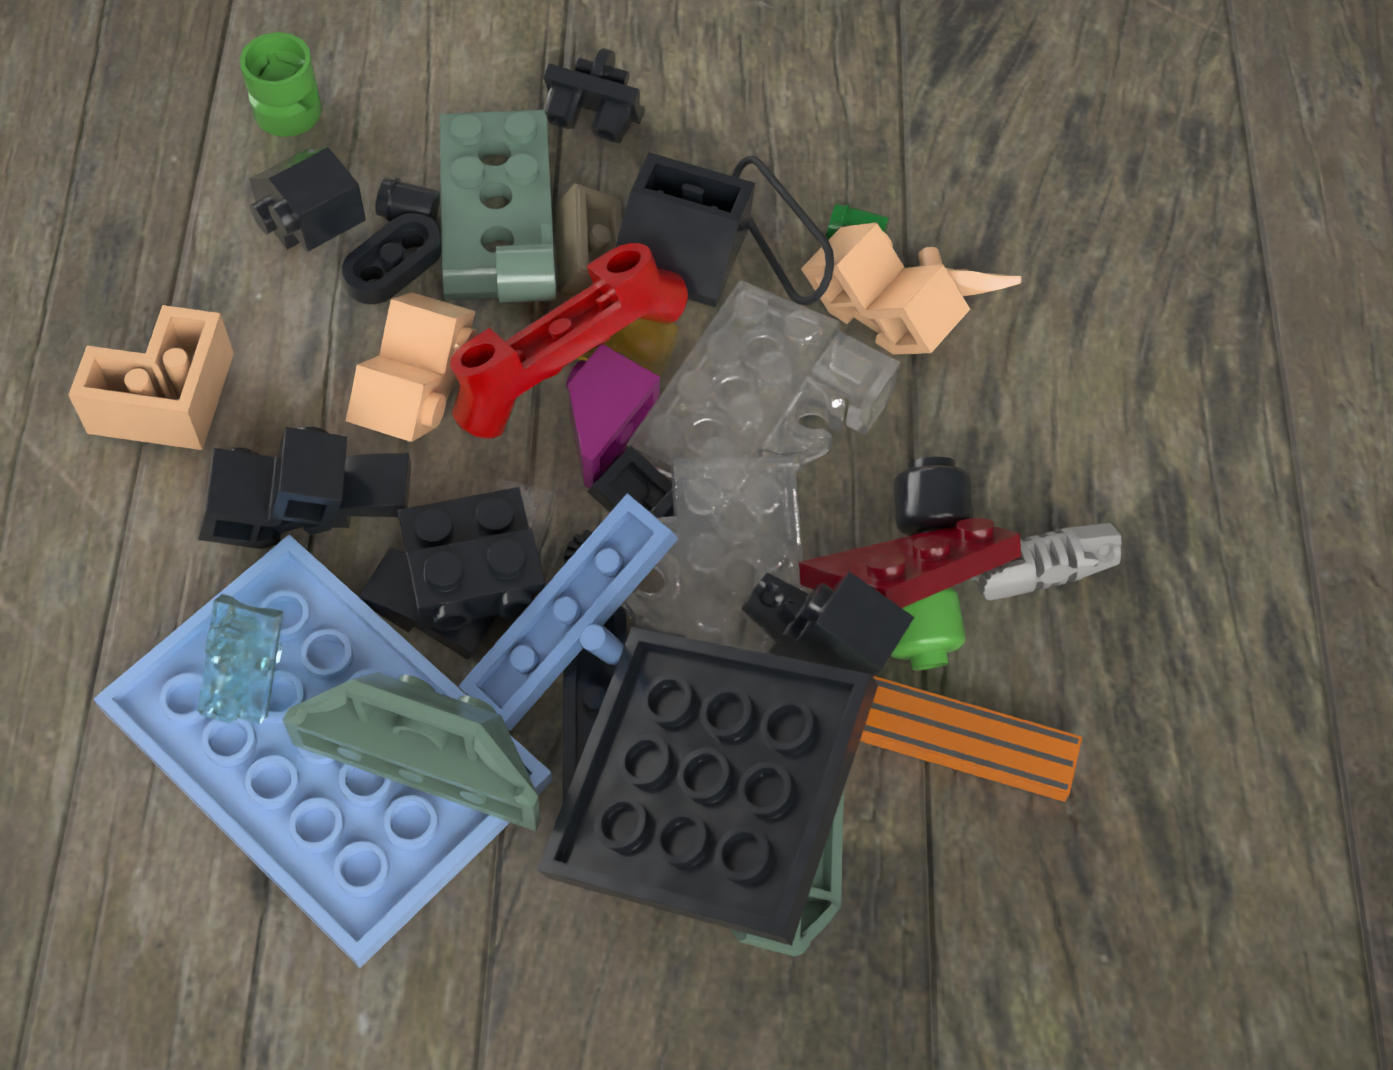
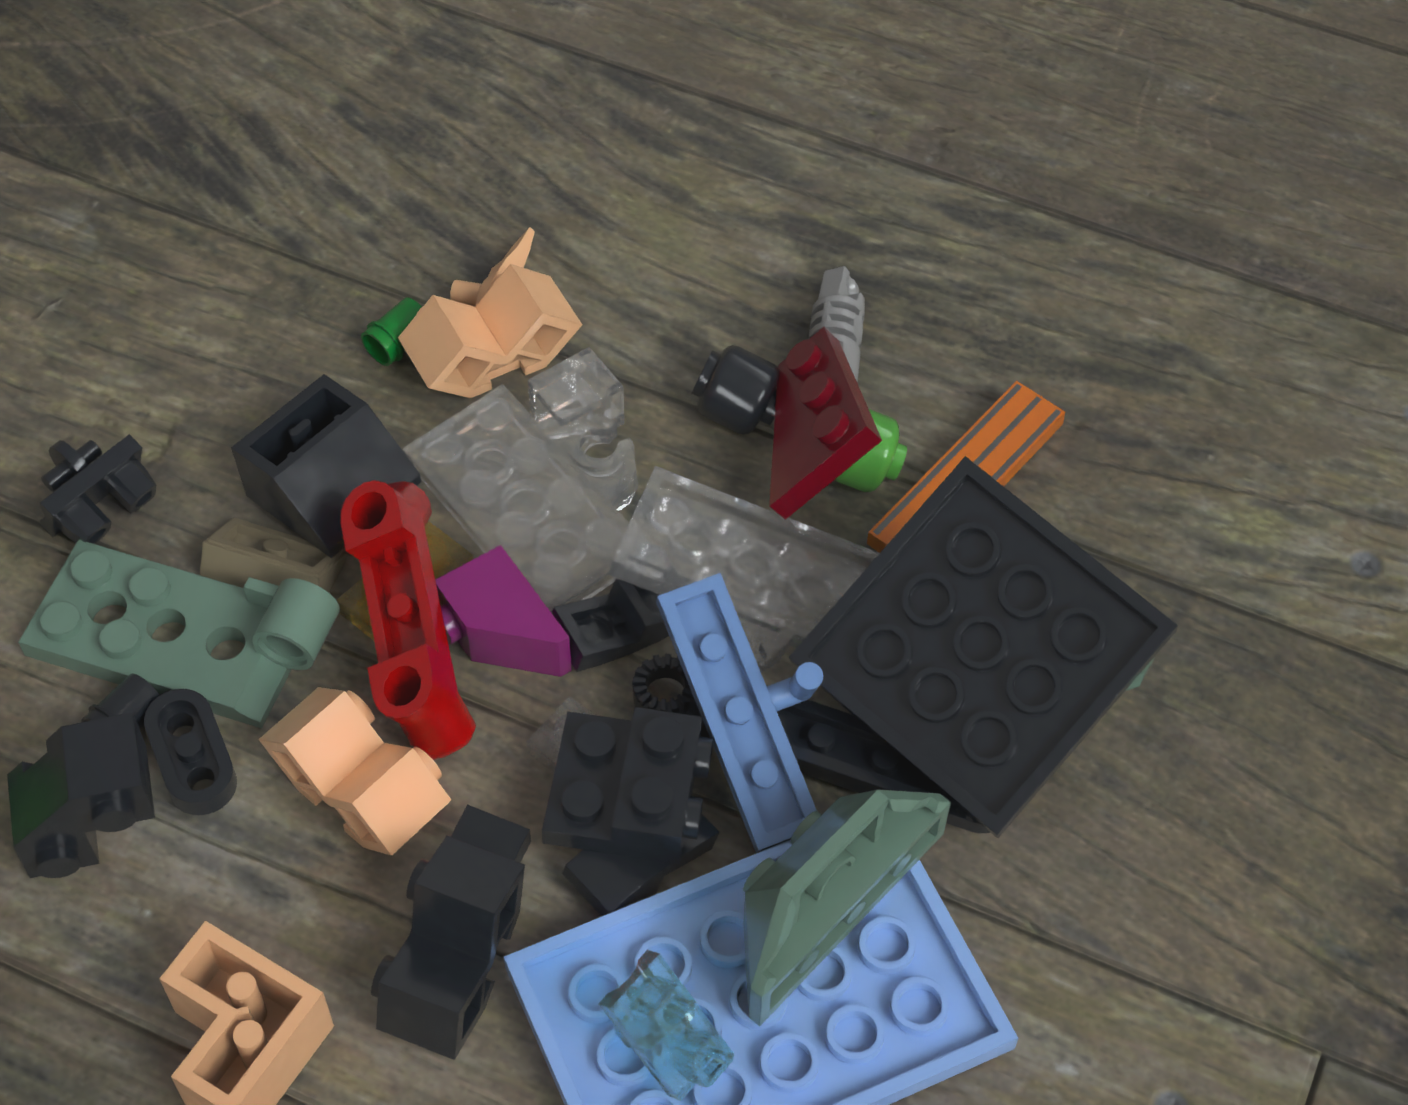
camera: 65 degrees left, 5 degrees down
(829, 257) = (378, 354): black piece -> none
(831, 627) = (870, 497): black hinge -> none

